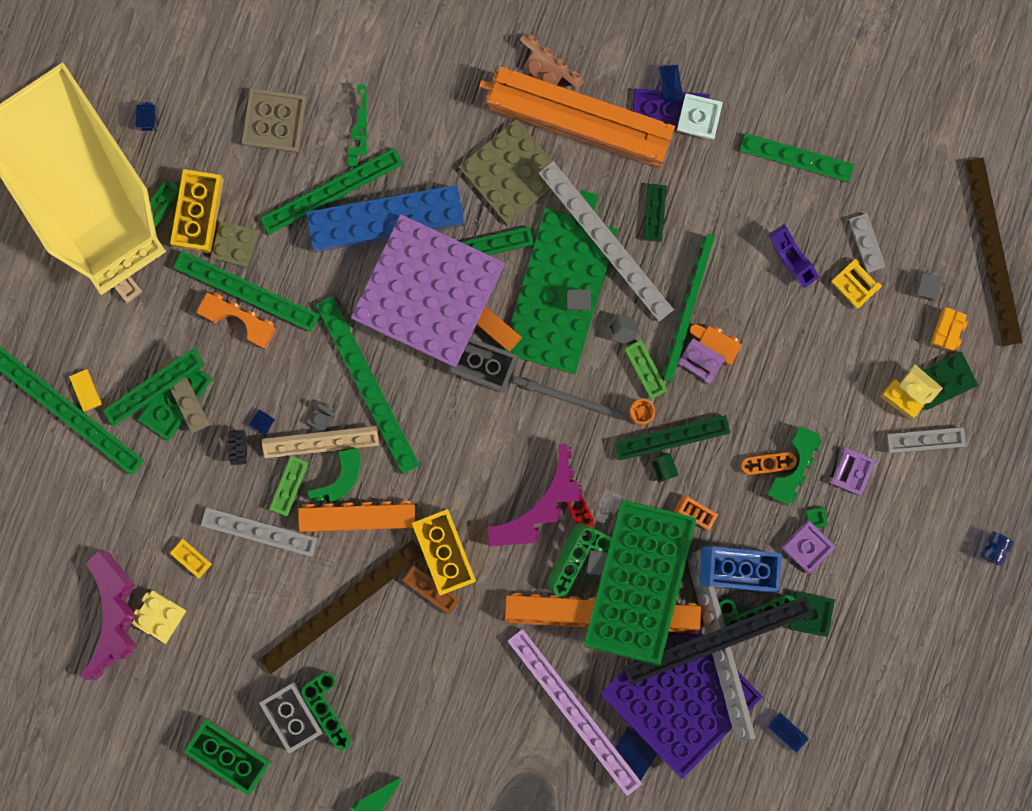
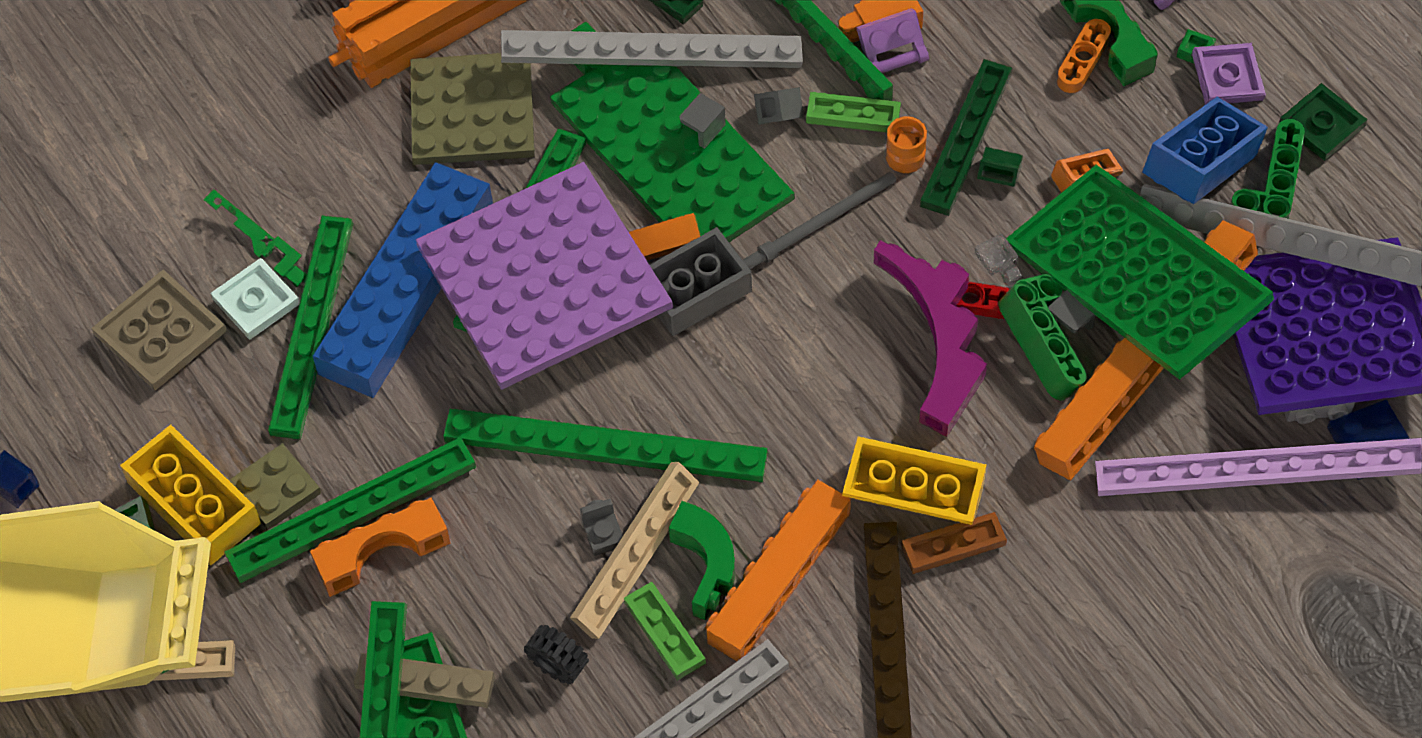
camera: 50 degrees left, 25 degrees down
(262, 422) = (546, 609): clear blue plate -> none
(324, 153) = (255, 298): none -> light aqua plate
(721, 639) = (1286, 221): black plate -> none

